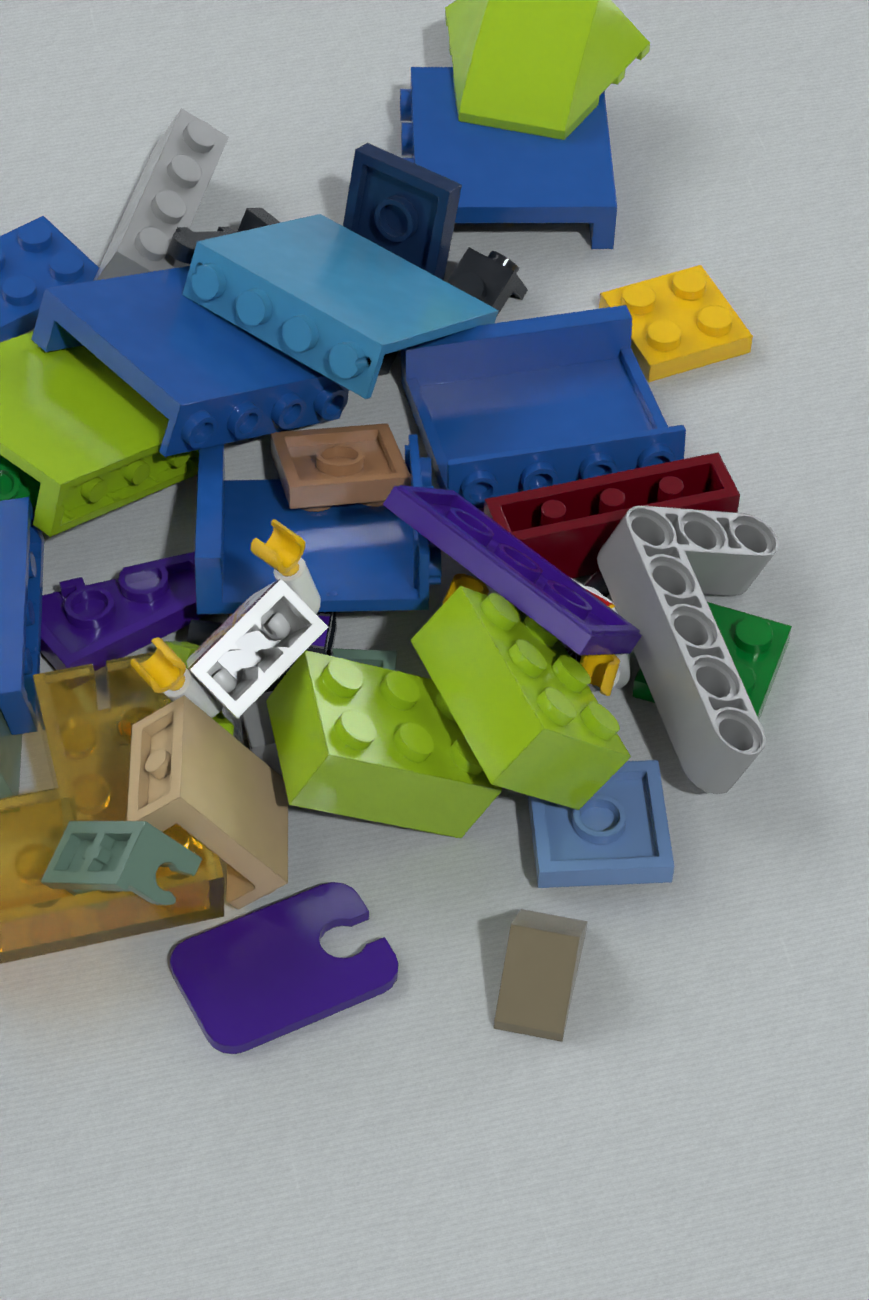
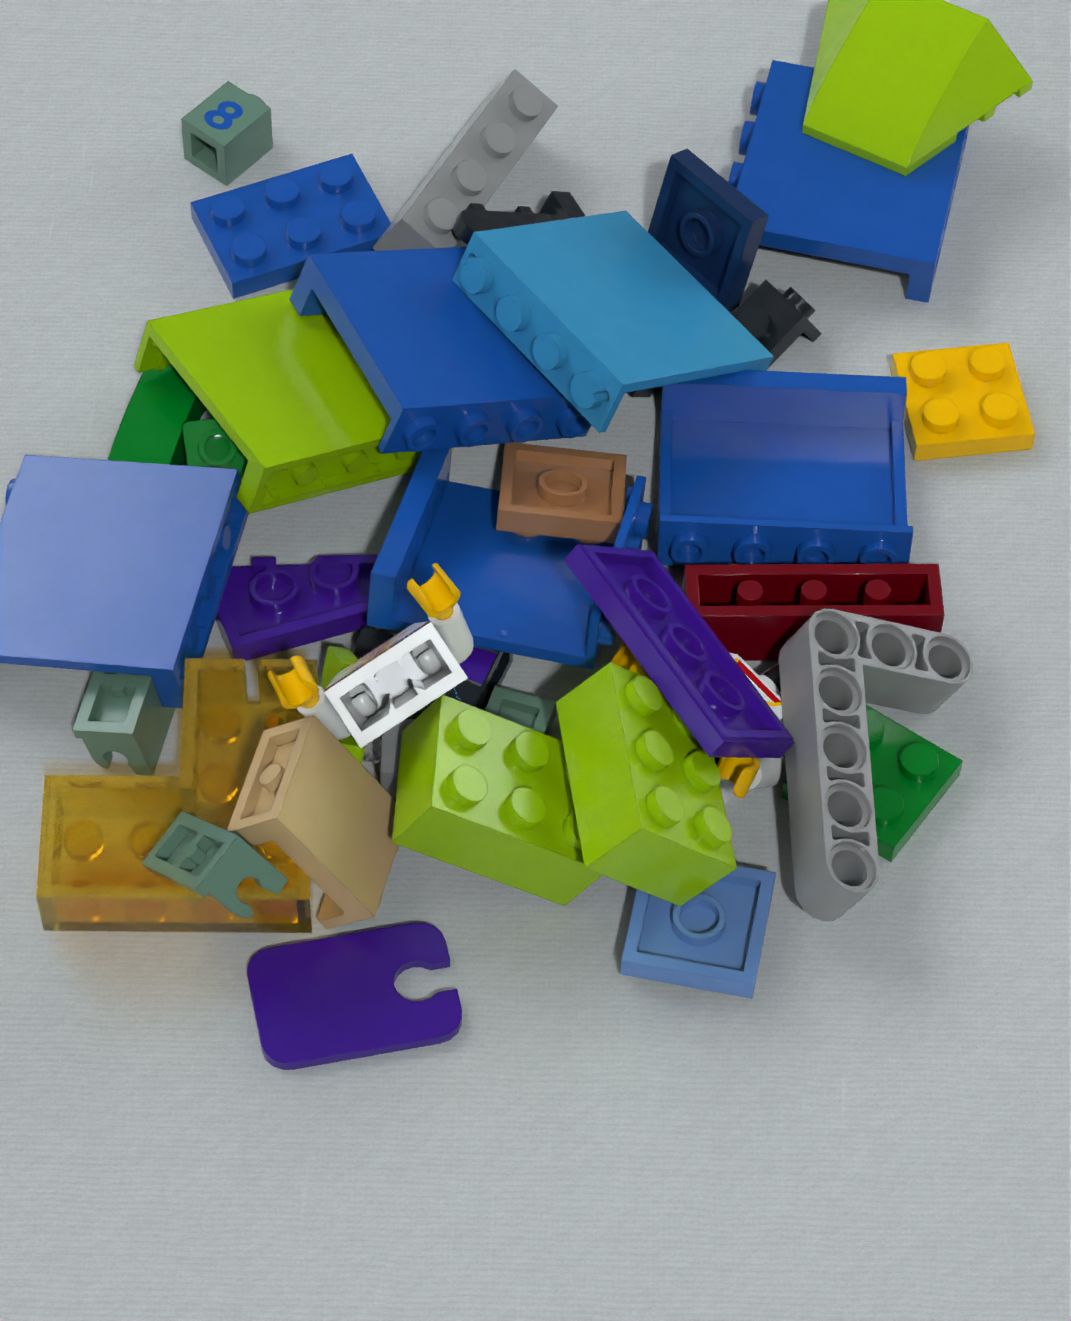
camera: 15 degrees right, 5 degrees up
(539, 974) = (592, 1058): dark tan slope -> none

